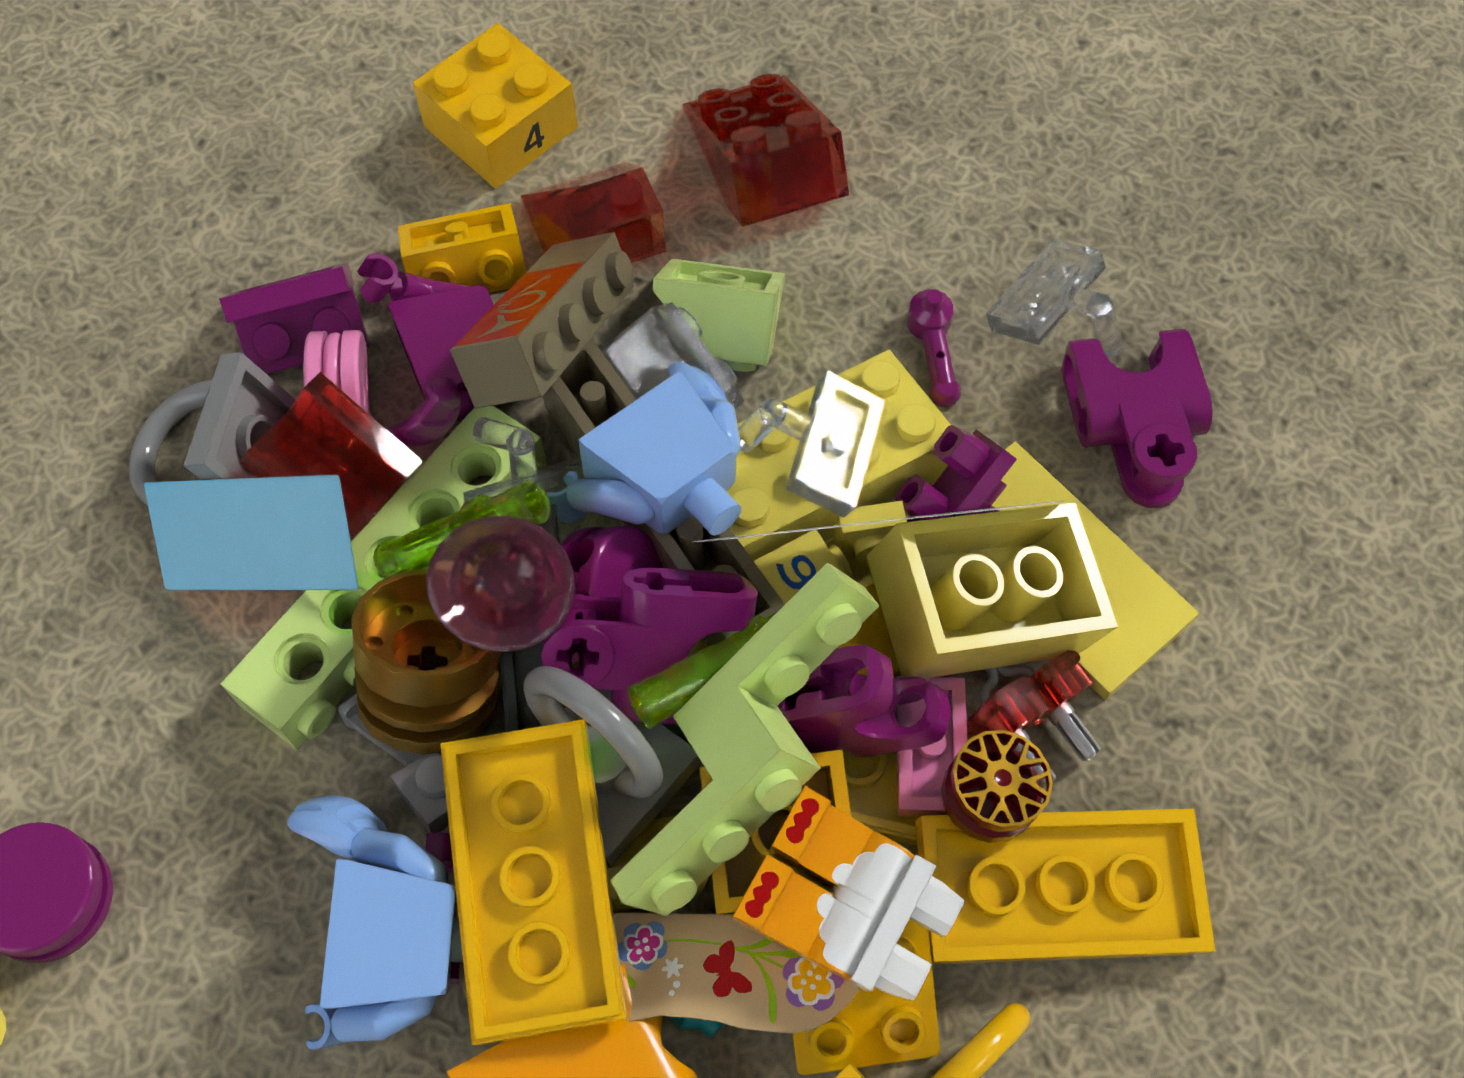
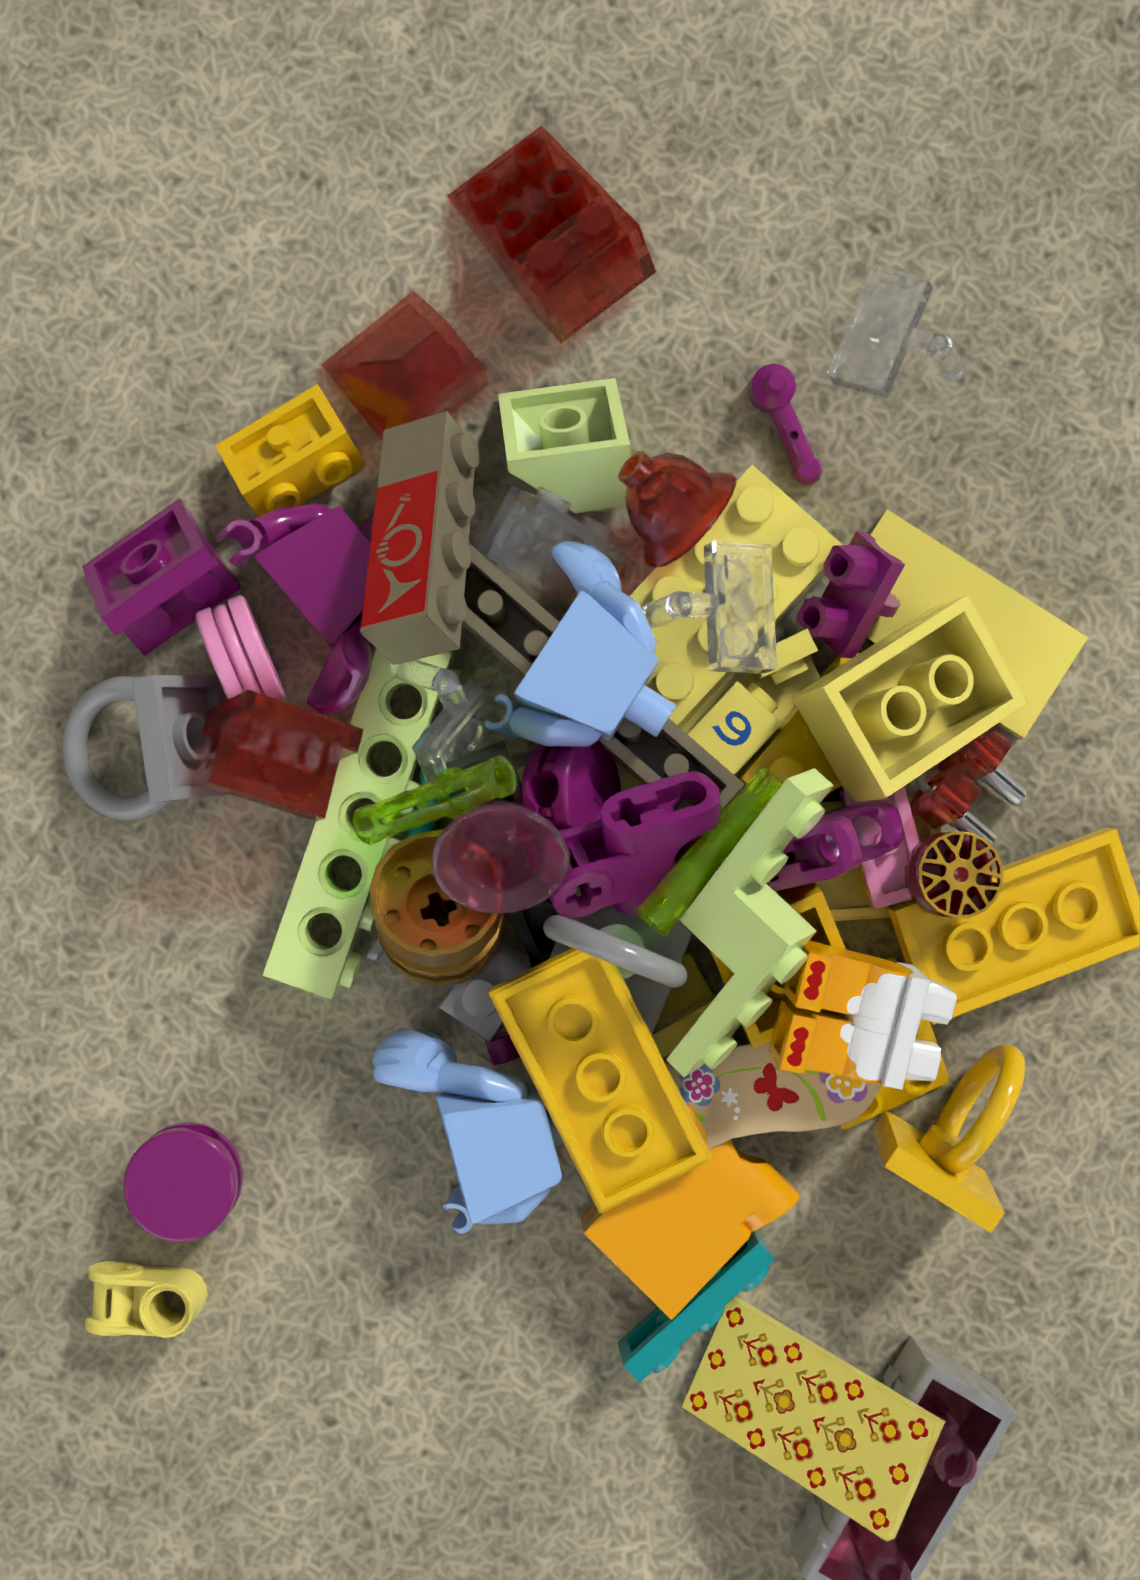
camera: 20 degrees left, 25 degrees up
(252, 534) = (231, 836): medium azure sticker -> none
(496, 104) = (259, 268): yellow brick -> none
(798, 351) = (672, 503): none -> clear red hat
(979, 510) = (863, 651): white sticker -> none
(1141, 414) = (998, 449): magenta piece -> none

